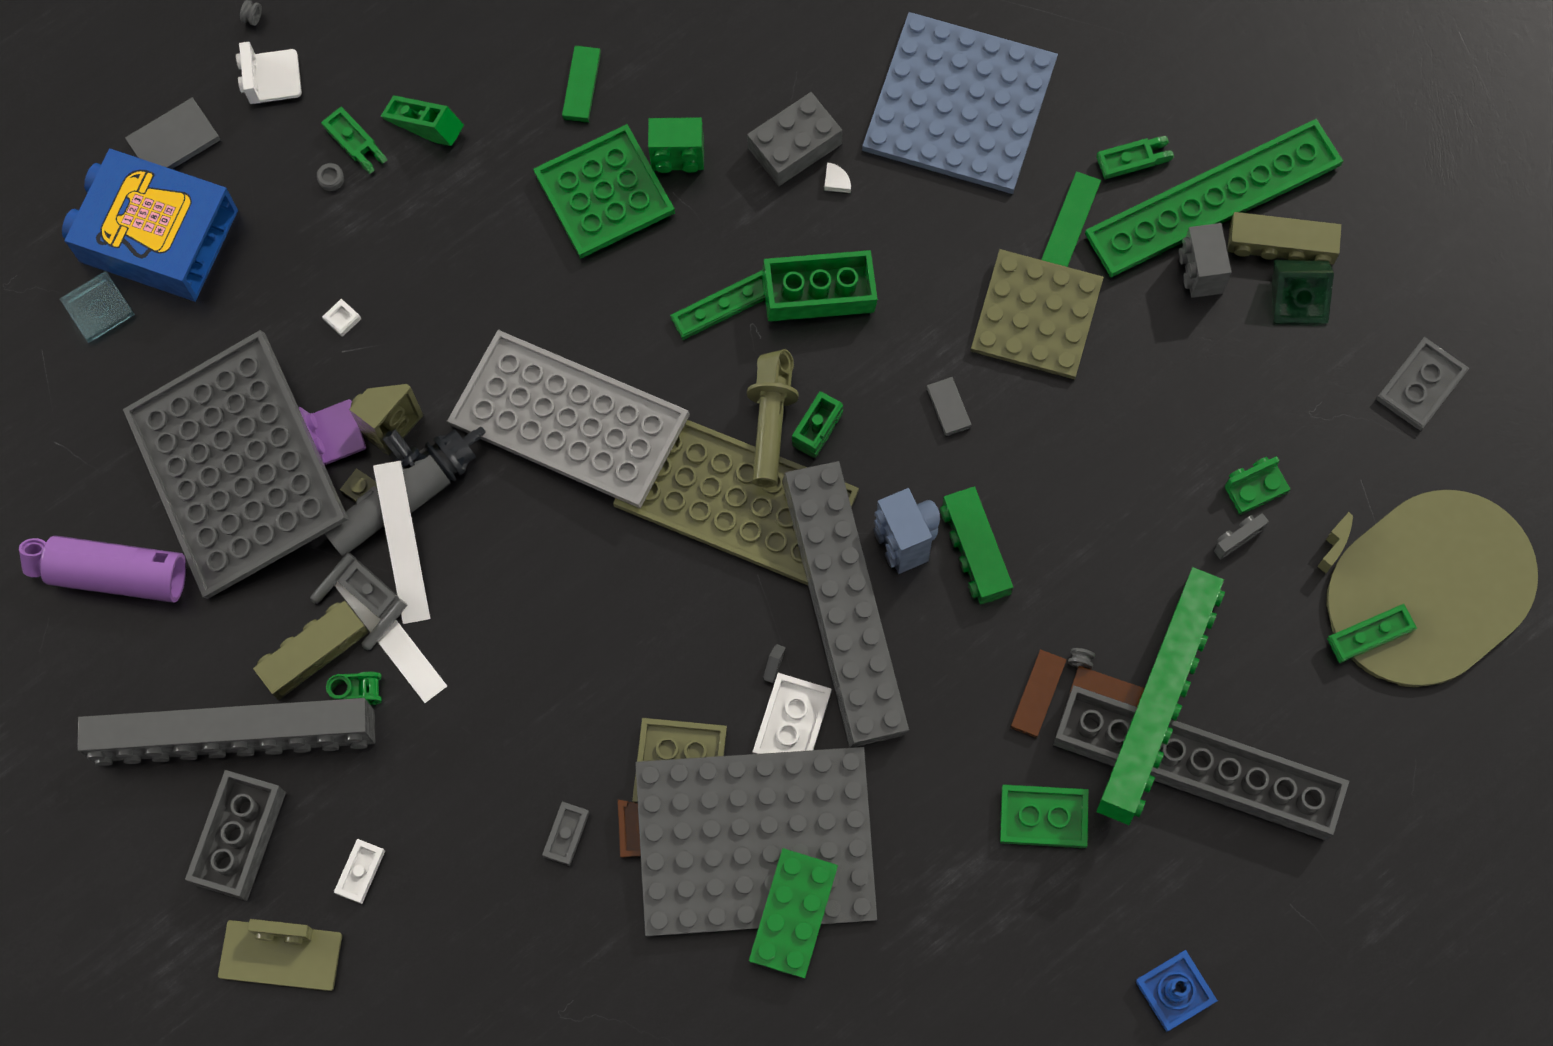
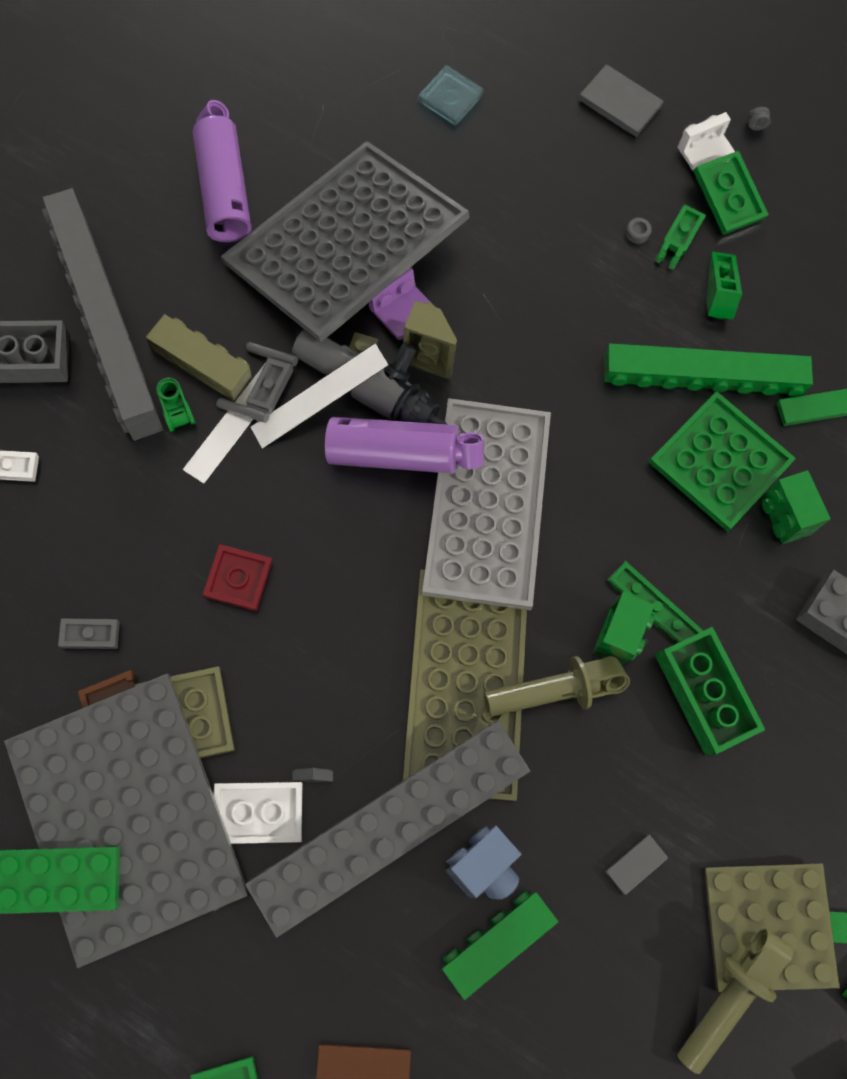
camera: 60 degrees right, 0 degrees up
(150, 224) = (536, 104): blue brick -> none
(325, 73) = (730, 192): none -> green plate
(341, 317) = (513, 282): white tile -> none
(486, 475) = (402, 445): none -> medium lavender piece
(507, 169) = (707, 369): none -> green brick
(559, 677) = (237, 578): none -> dark red plate
(736, 337) = (624, 628): none -> green brick
(817, 424) = (566, 737): green brick -> none
(836, 179) = (826, 672): white tile -> none
(1070, 342) = (751, 977): none -> olive piece

